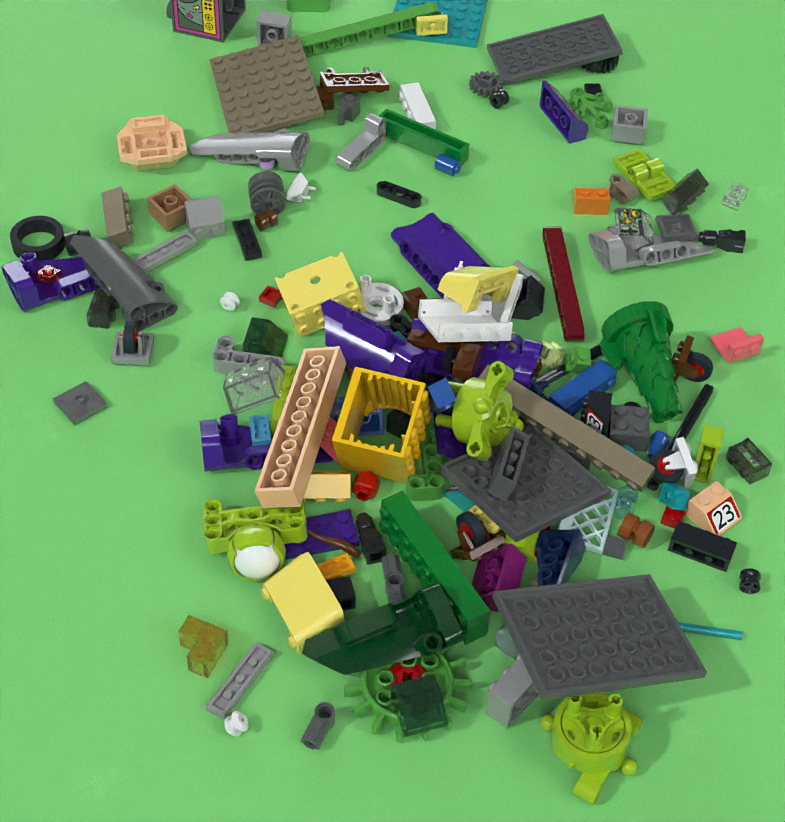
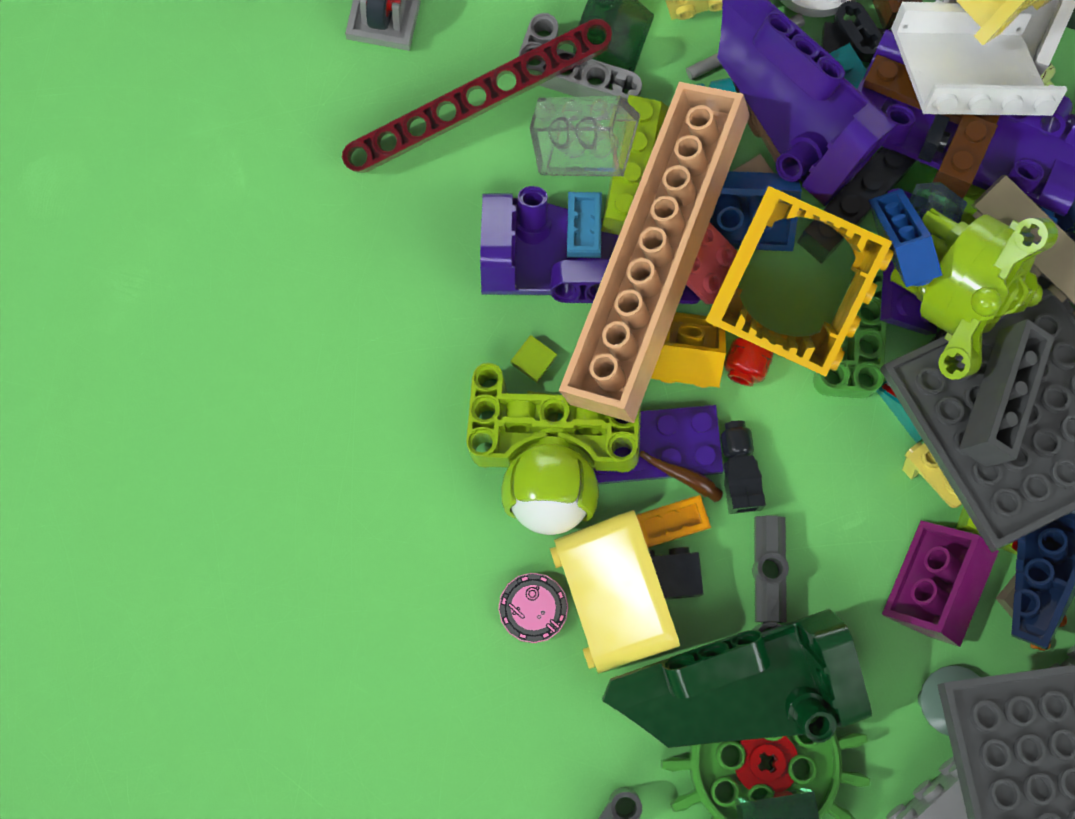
camera: 10 degrees right, 30 degrees up
(80, 403) = (287, 118): flat silver plate -> none
(186, 383) = (494, 96): none -> dark red beam
(205, 644) = (454, 640): clear yellow brick -> none
(236, 723) = (484, 798): white wheel -> none
(239, 499) = (533, 358): none -> lime tile
(239, 681) = (499, 711): light grey tile -> none
(254, 624) = (533, 608): none -> tile
(433, 563) = (840, 551): green brick -> none
(474, 538) = (917, 513): plate -> none

